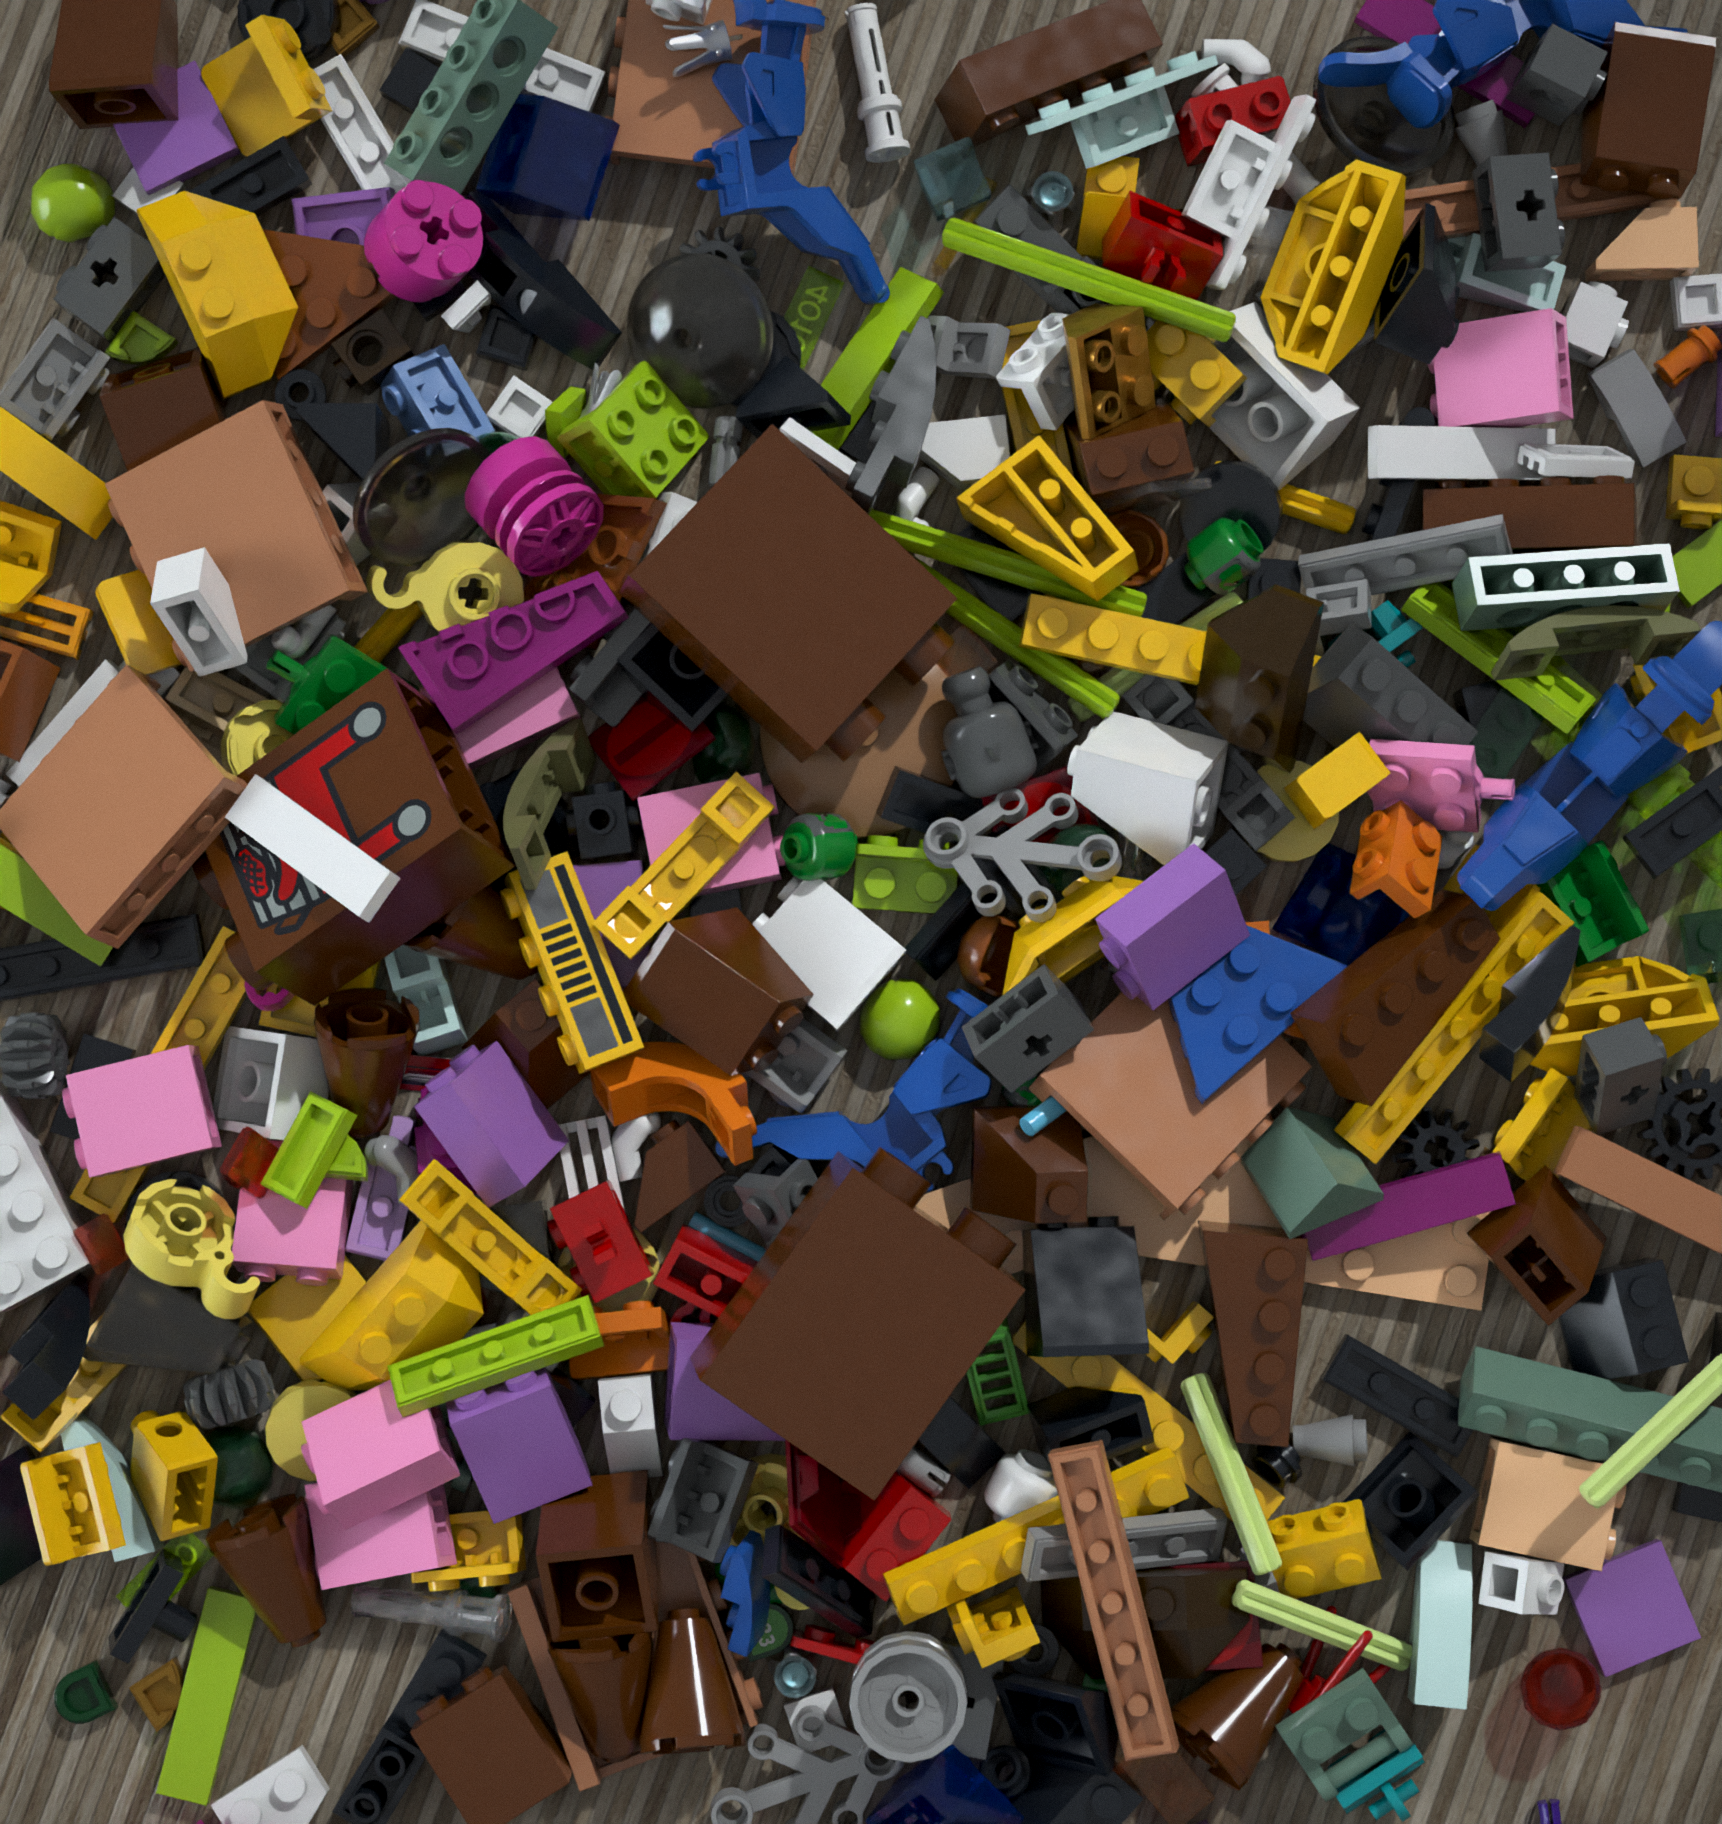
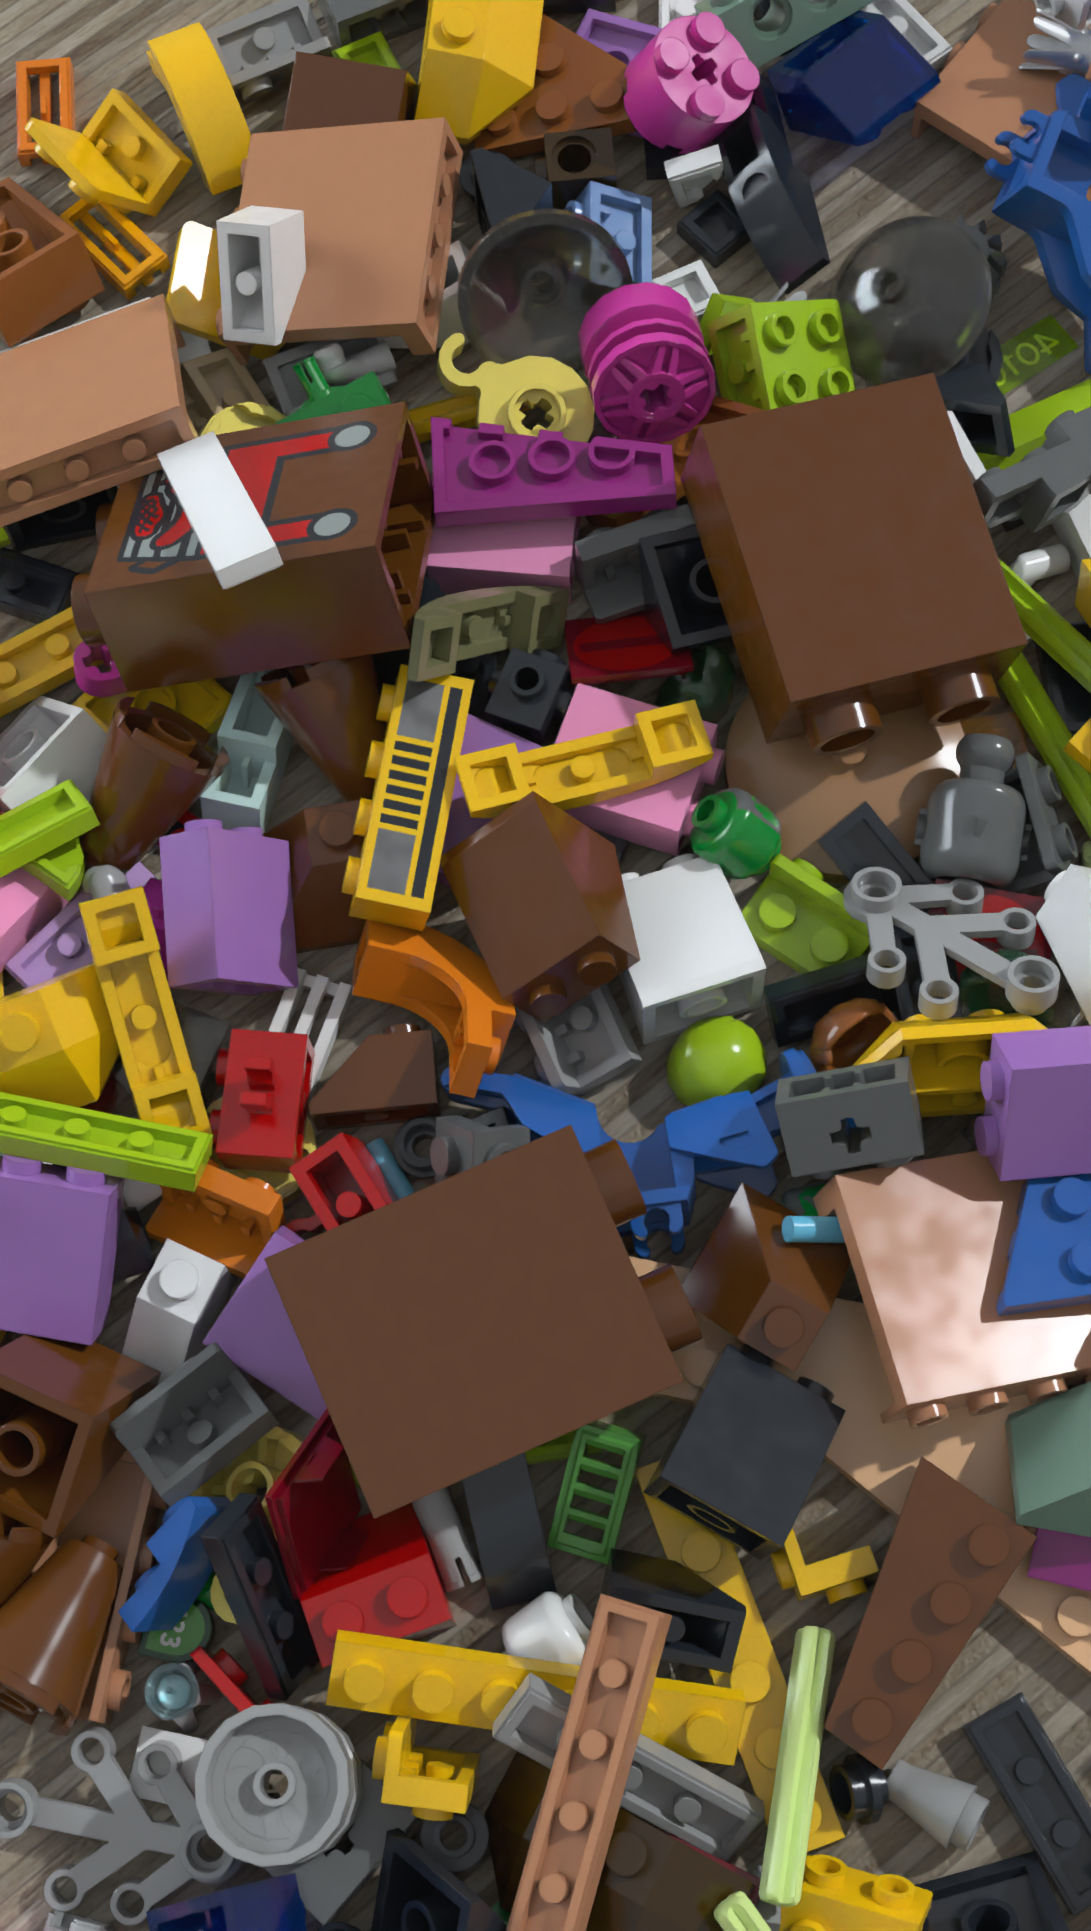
camera: 40 degrees right, 15 degrees down
(627, 1141) = (357, 1025): white arm -> none

